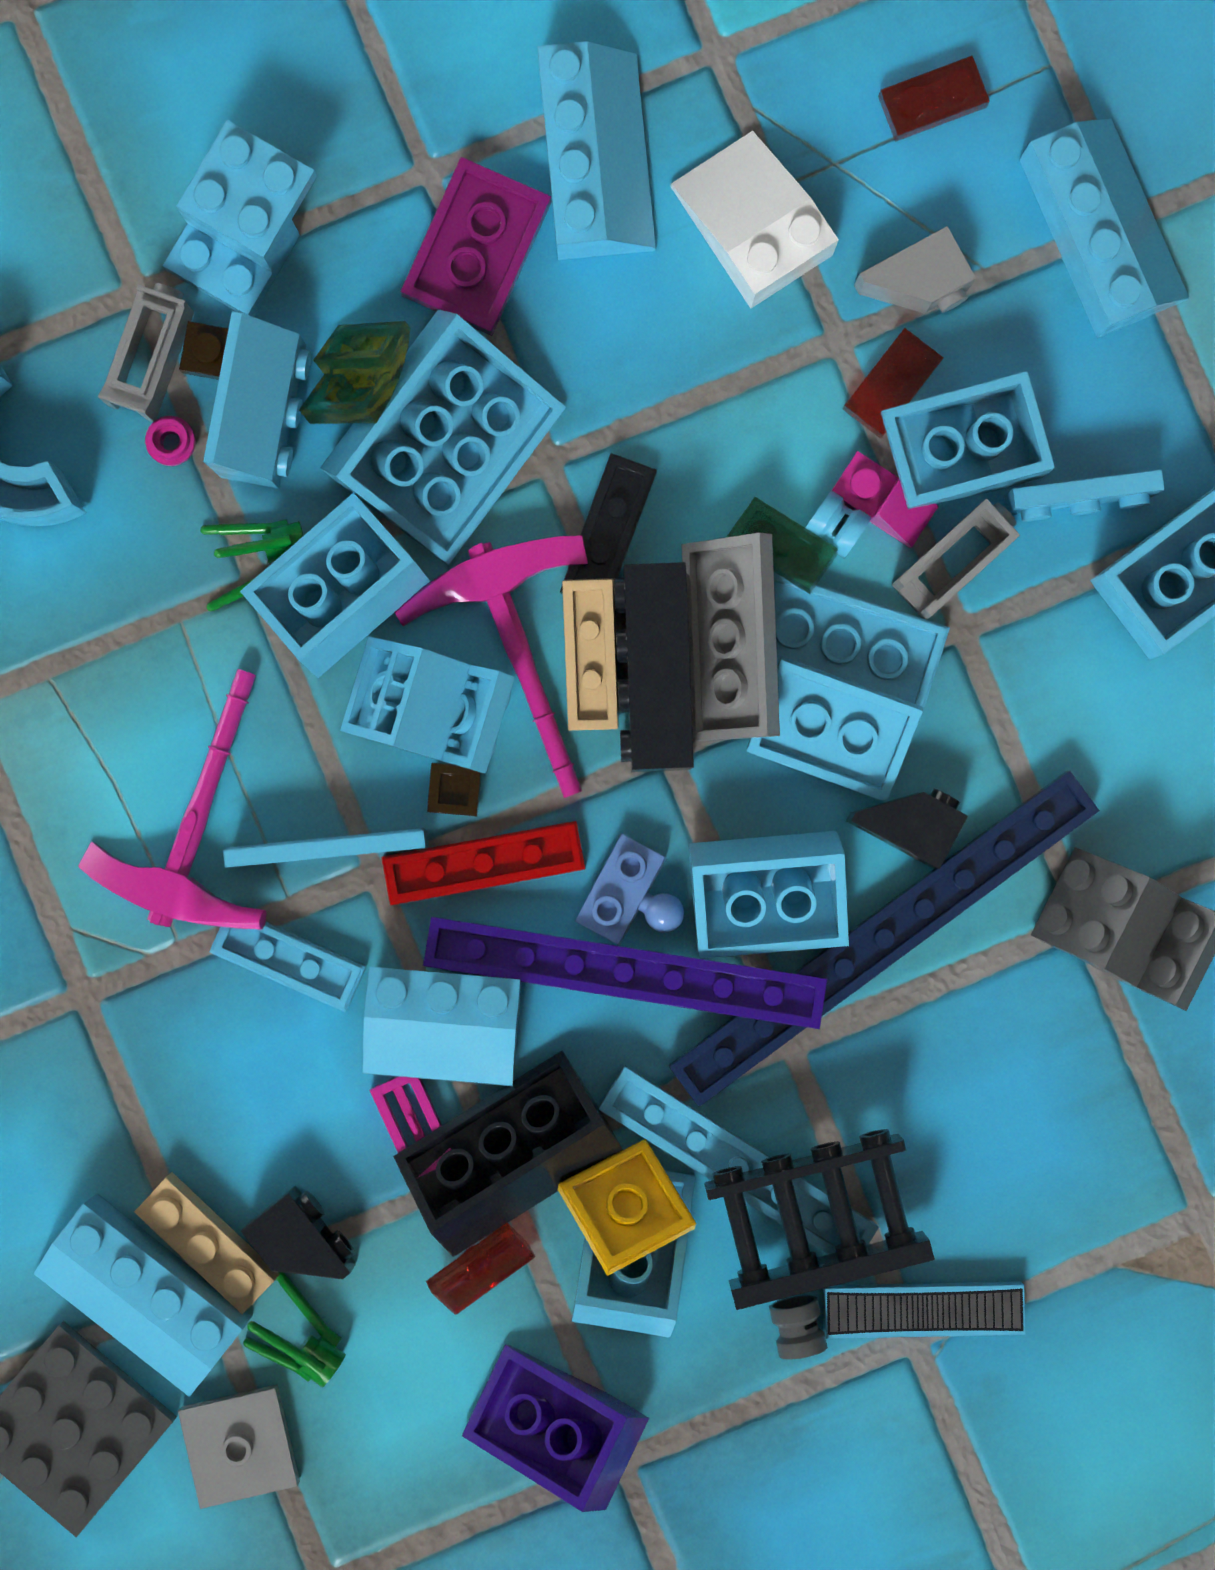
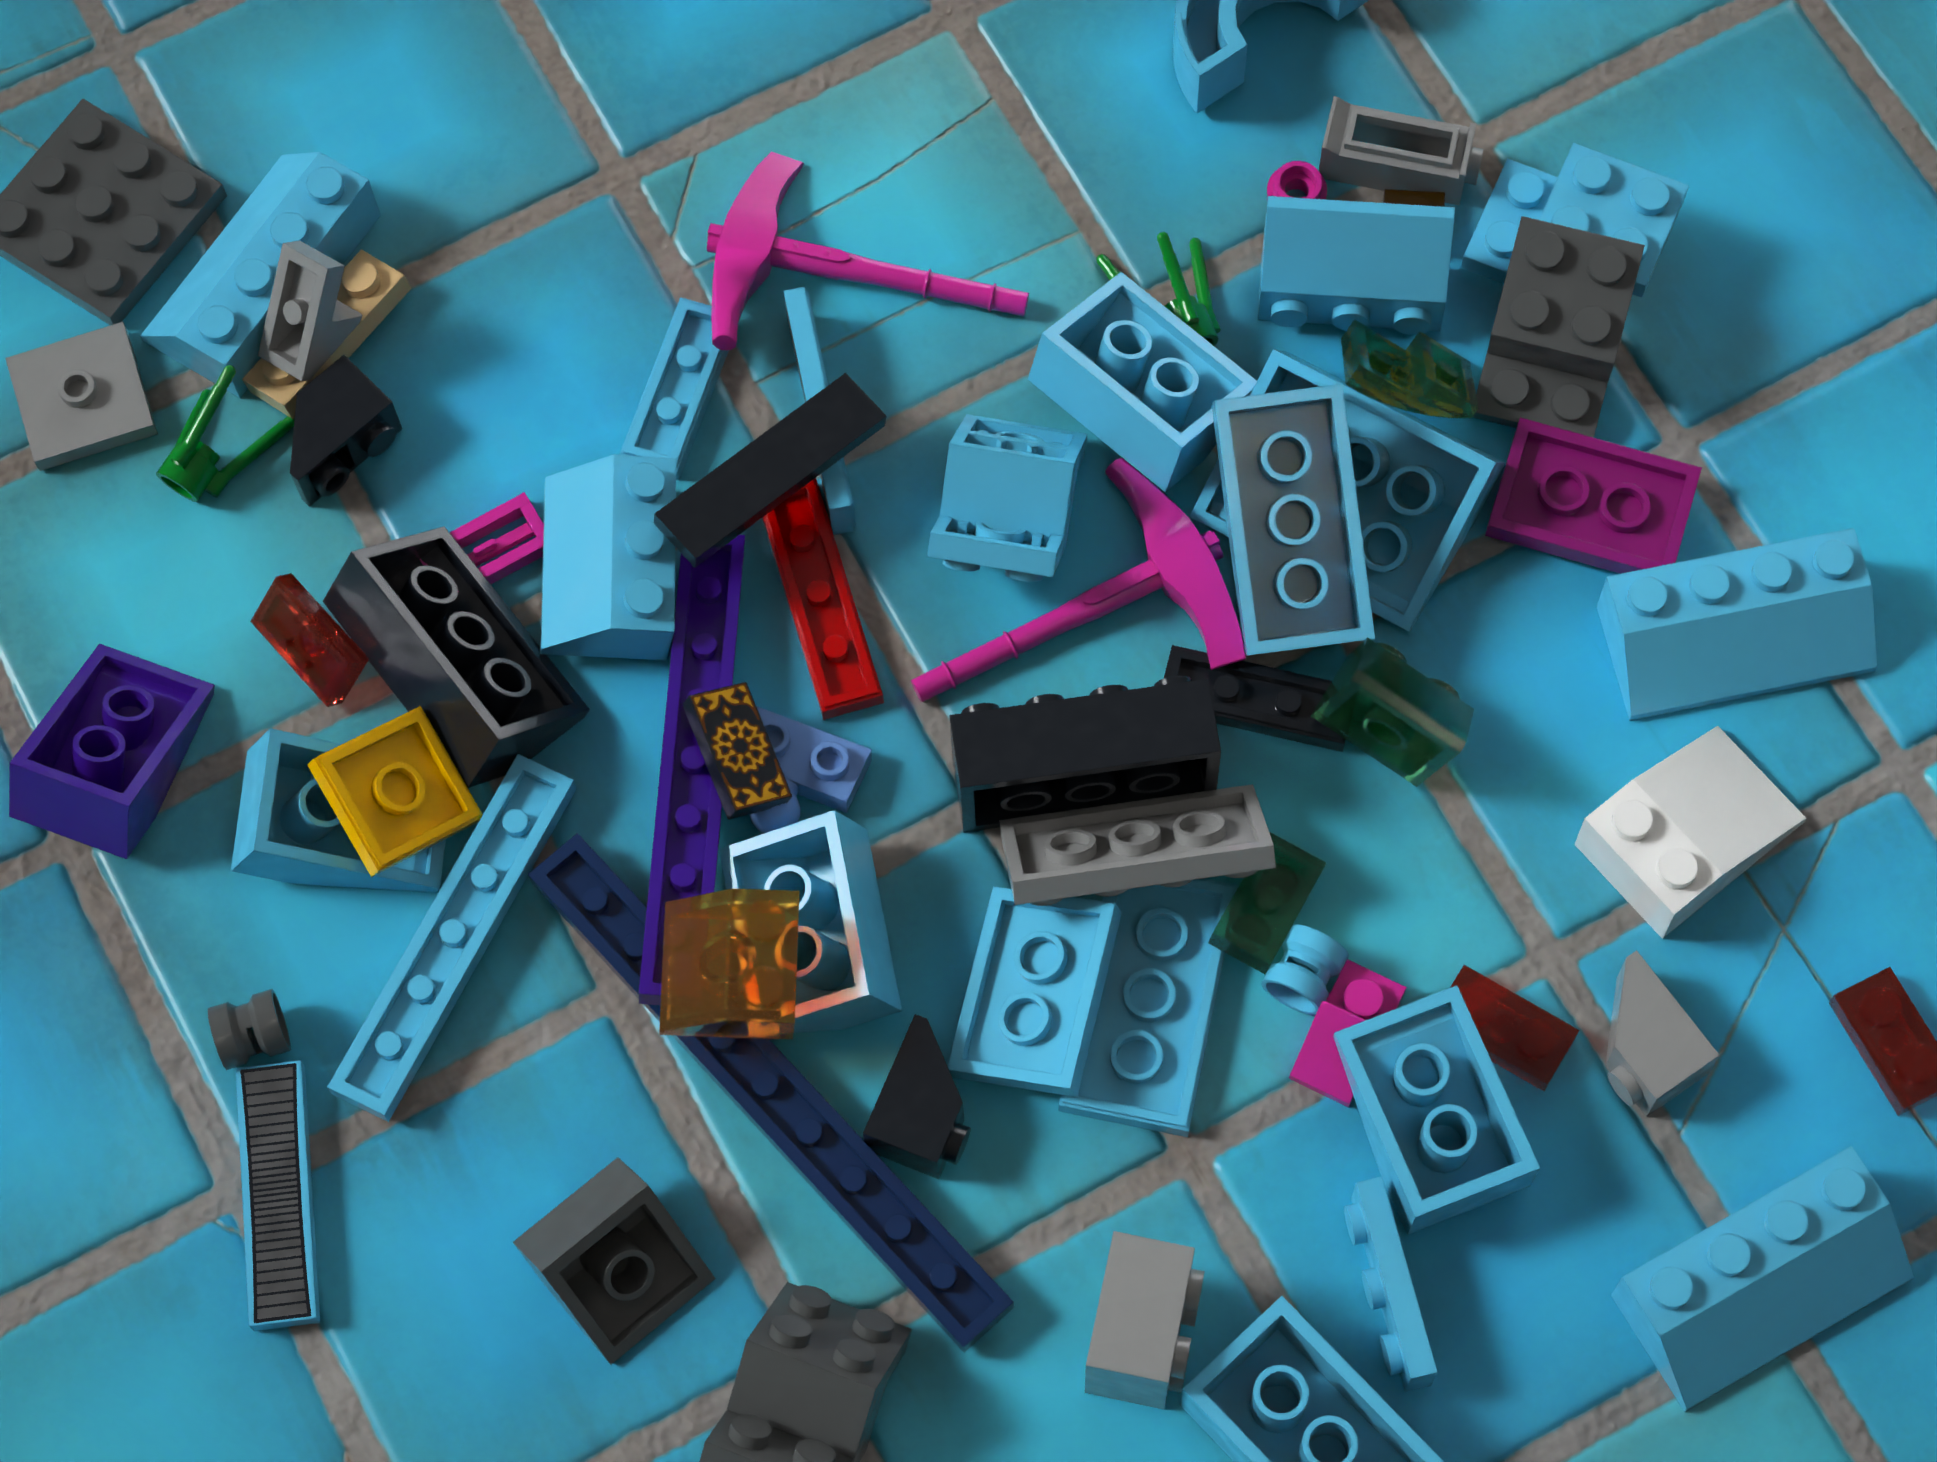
camera: 90 degrees right, 20 degrees down
(204, 1261) = (303, 313): none -> light grey slope
(336, 247) = (1557, 327): none -> dark grey bracket
(392, 891) = (769, 470): none -> black tile
(454, 790) = (903, 548): dark brown plate -> none
(483, 481) = (1293, 519): none -> medium azure brick
(590, 654) = (1078, 674): tan plate -> none
(624, 938) = (737, 750): none -> tile
(645, 422) = (1395, 712): none -> clear green slope
(804, 1269) = (346, 1071): black fence -> none
(813, 956) = (730, 964): none -> clear orange slope
(993, 523) = (1252, 1072): light grey window -> none
(1004, 1063) = (614, 1259): none -> dark grey slope
(1104, 678) = (1139, 1318): none -> light grey brick

